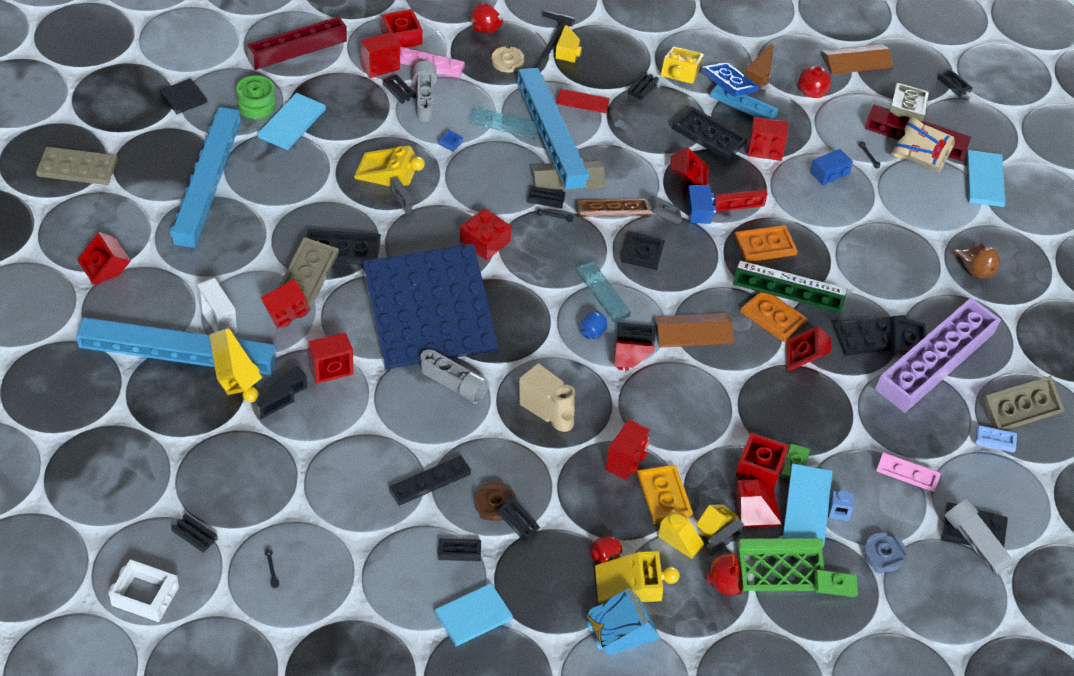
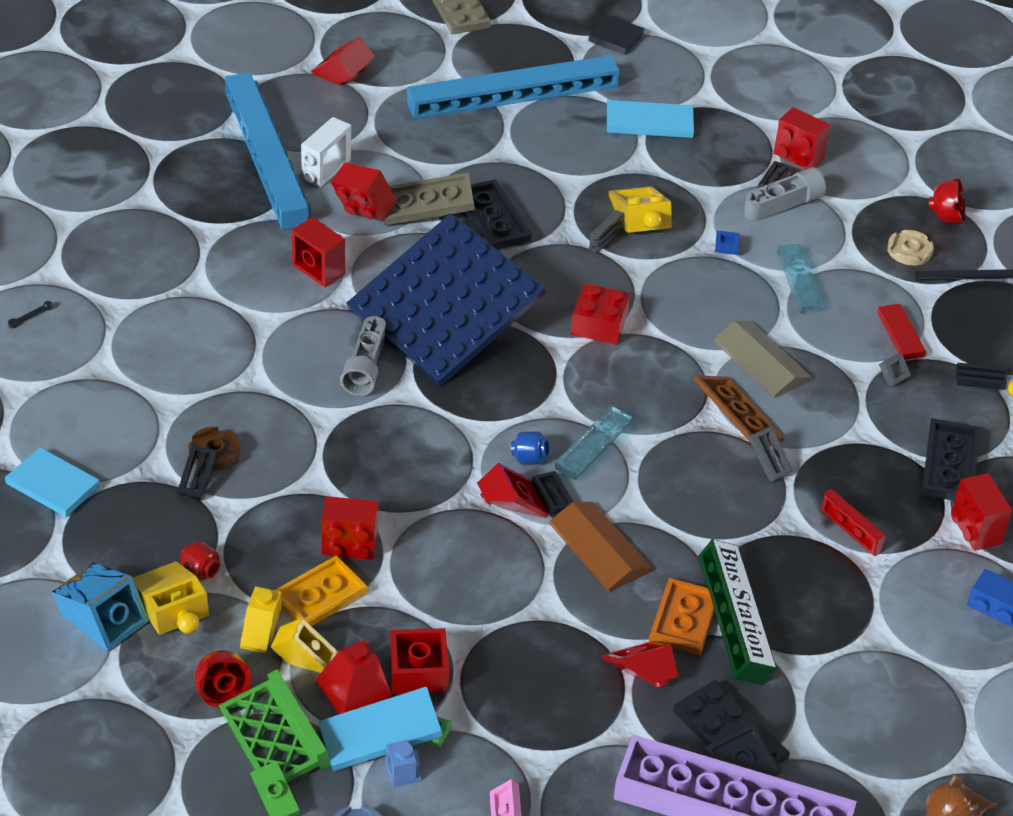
camera: 65 degrees right, 5 degrees down
(198, 526) = (54, 237): black tile -> none
(233, 366) = (248, 185): yellow slope -> none
(256, 97) = (654, 77): bright green wheel -> none
(282, 392) = (255, 239): black slope -> none
(296, 43) = (763, 76): dark red brick -> none
(404, 27) = (862, 143): red brick -> none
(429, 480) = (214, 390): black plate -> none
(444, 65) = (843, 188): bright pink plate -> none
(460, 553) = (139, 457): black tile -> none
(546, 197) = (713, 350): black tile -> none
(548, 397) = (381, 436): tan piece -> none
(552, 129) = (813, 310): dark azure brick -> none
(568, 46) = (979, 285): yellow slope -> none
(569, 218) = (681, 353): black hinge -> none
(643, 251) = (693, 461): black tile -> none
(689, 167) = (865, 460): red slope -> none
(700, 204) = (808, 485): blue brick -> none
(724, 537) = (287, 663): dark grey tile -> none
(765, 243) = (804, 573): orange tile -> none
(796, 455) = (455, 703): bright green plate -> none

